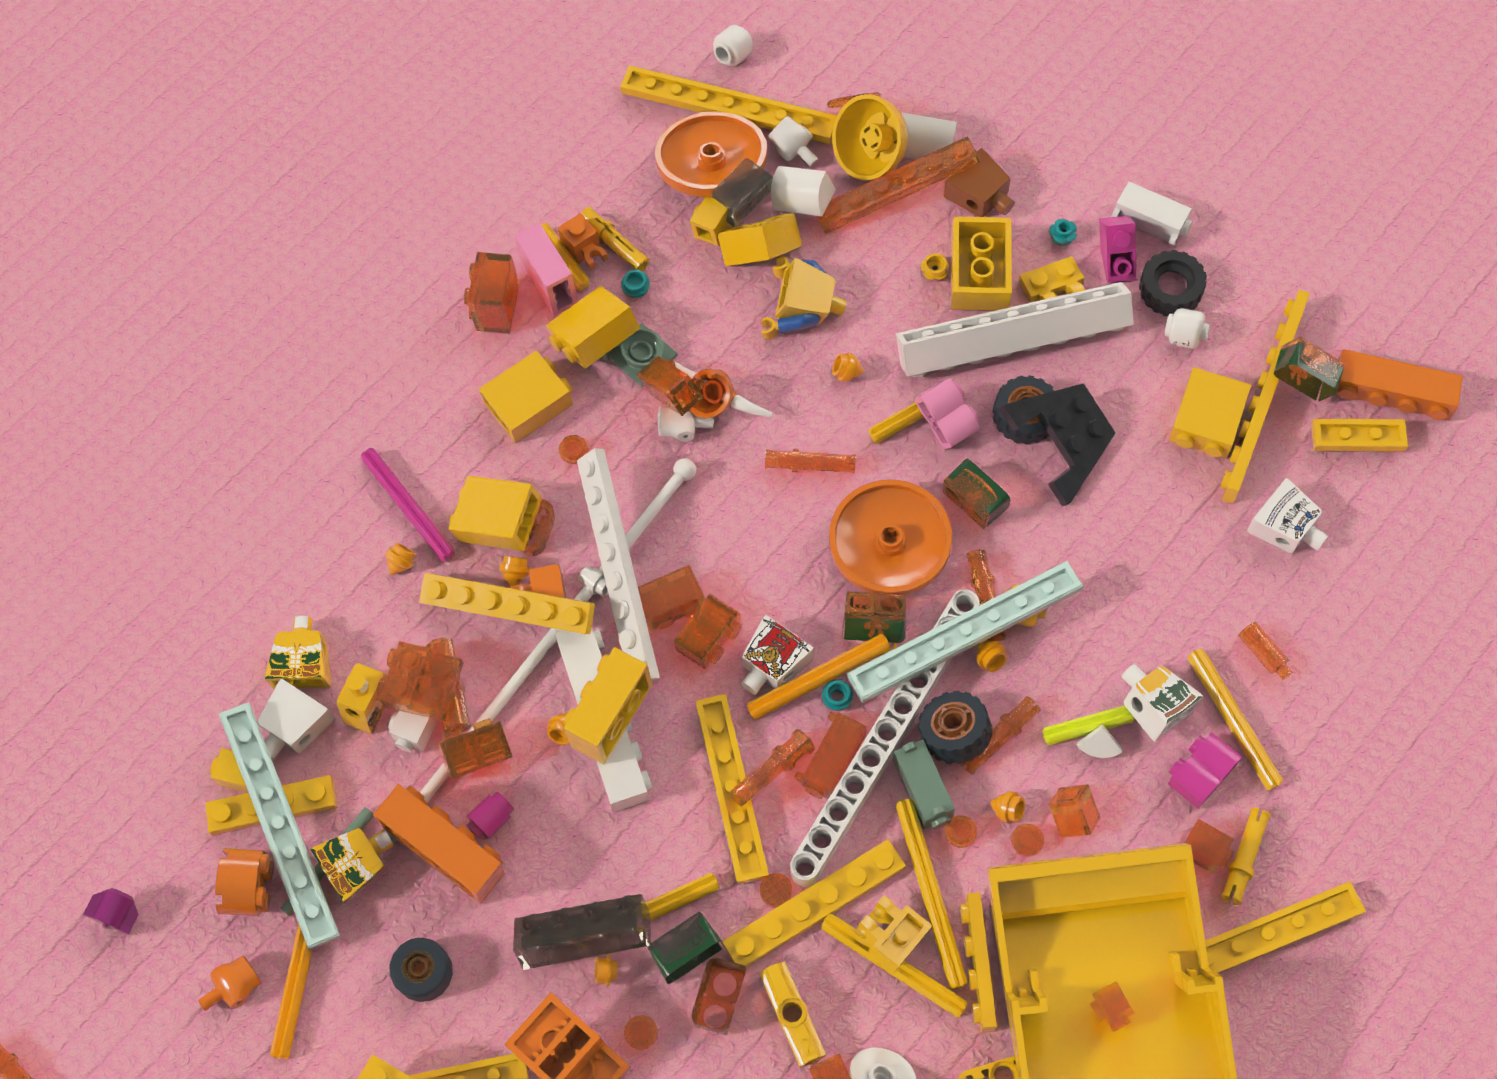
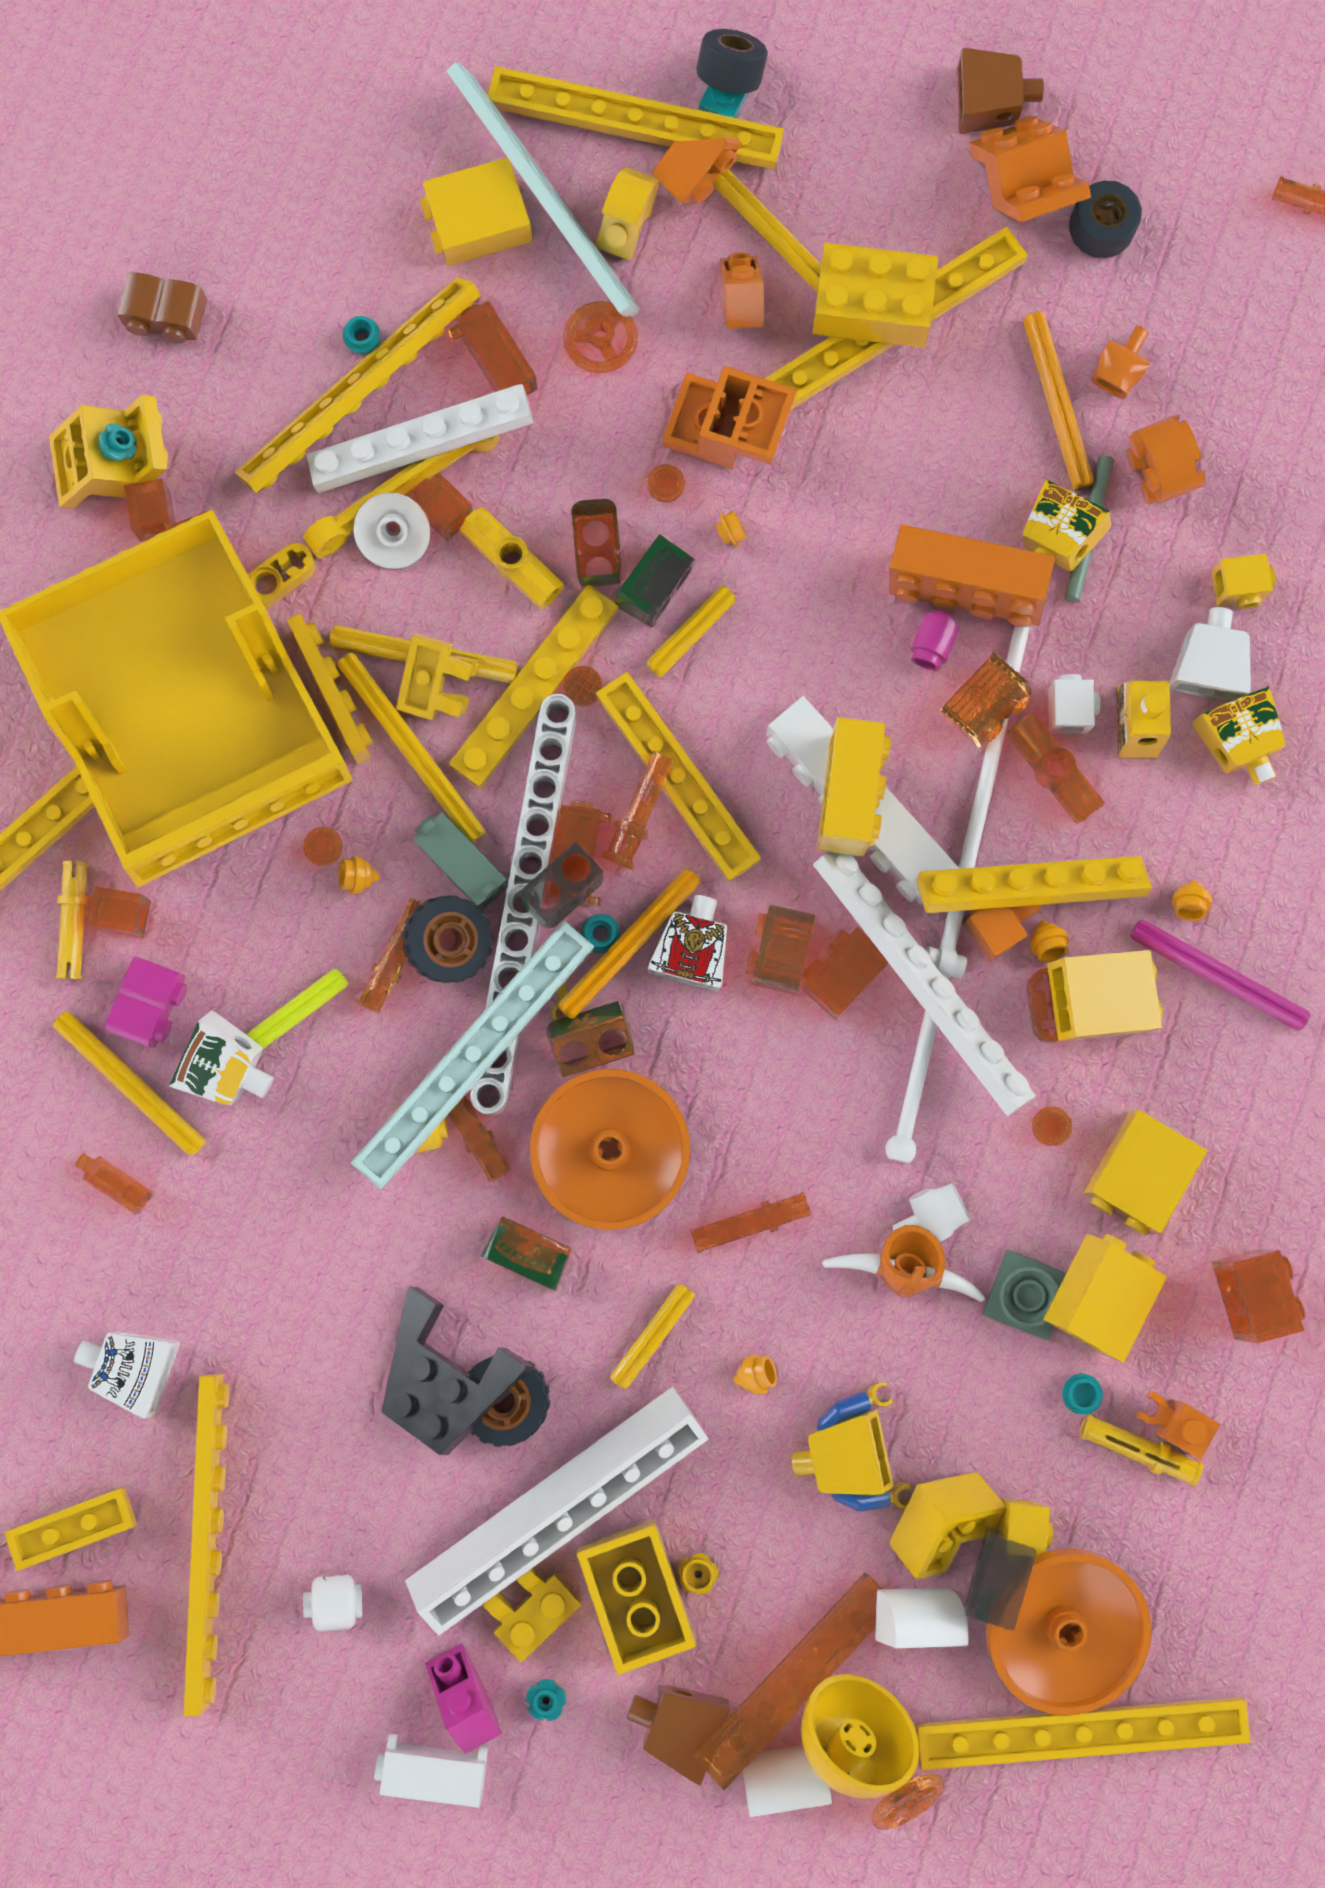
camera: 150 degrees right, 15 degrees up
(112, 910) = (1291, 380): magenta piece -> none
(239, 812) = (1184, 563): yellow plate -> none
(279, 826) = (1164, 534): light aqua tile -> none
(419, 681) = (1086, 745): clear orange plate -> none
(424, 980) = (922, 466): black wheel -> none
(546, 268) = (1207, 1358): bright pink brick -> none
(556, 729) = (900, 773): light orange plate -> none
(580, 279) = (1196, 1397): yellow axle -> none
(582, 931) = (771, 548): clear smoke brick -> none
(671, 385) = (966, 1247): clear orange brick -> none
(732, 45) = (1119, 1837): white head -> none
(791, 141) = (968, 1701): white piece -> none
(852, 737) = (568, 902): none -> clear smoke piece
(948, 413) = (601, 1351): bright pink brick -> none
(961, 831) = (400, 827): clear orange plate -> none
(991, 655) = (435, 1047): light orange plate -> none
(1074, 811) = (280, 897): clear orange panel -> none
(1100, 744) = (275, 989): white tile -> none
(1112, 1006) = (164, 673): clear orange plate -> none
(1172, 262) = (341, 1677): black tyre -> none
(1210, 413) = (268, 1485): yellow brick -> none
(1306, 367) = (154, 1590): clear orange piece -> none

